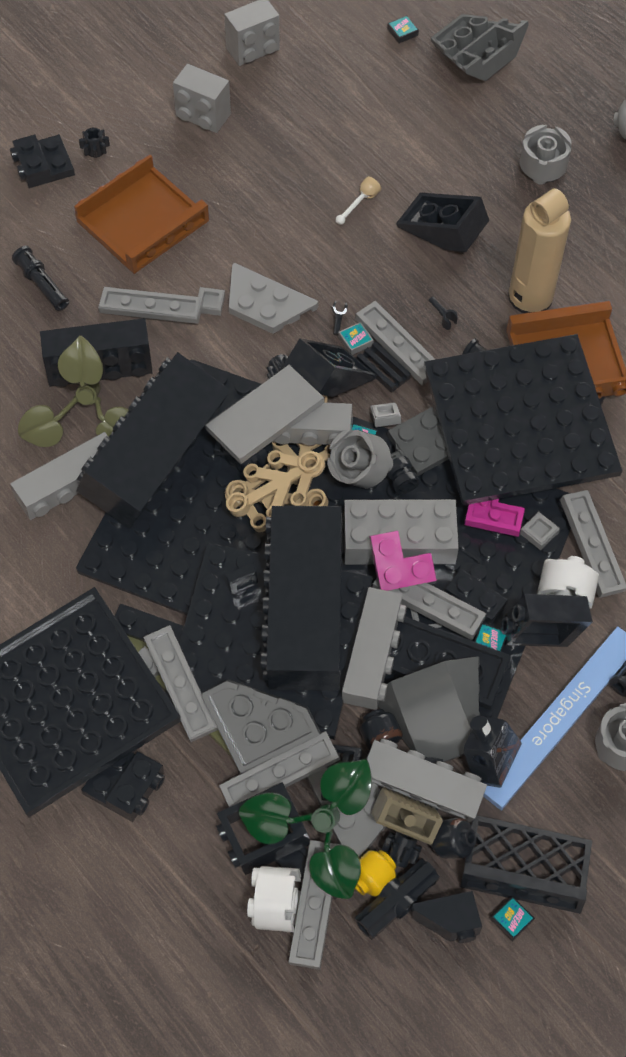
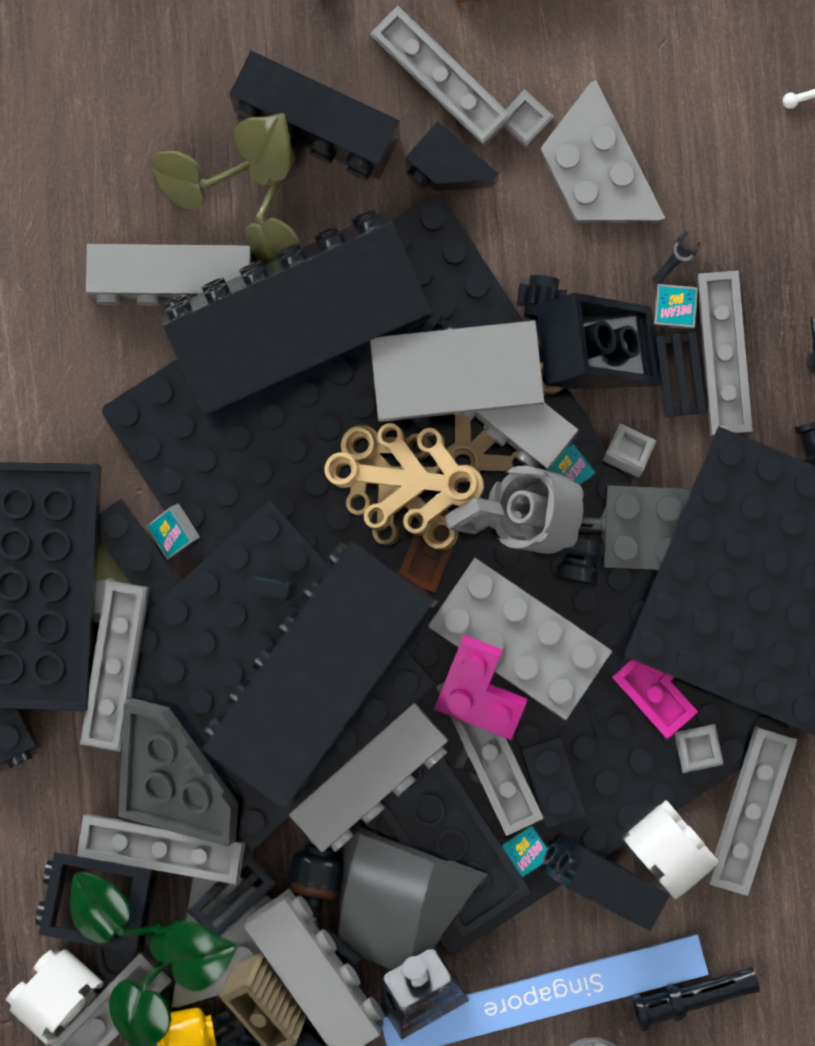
camera: 35 degrees right, 25 degrees up
(162, 603) = (172, 531): none -> tile
(187, 338) = (447, 163): none -> black slope
(328, 477) = (474, 516): none -> light grey tile

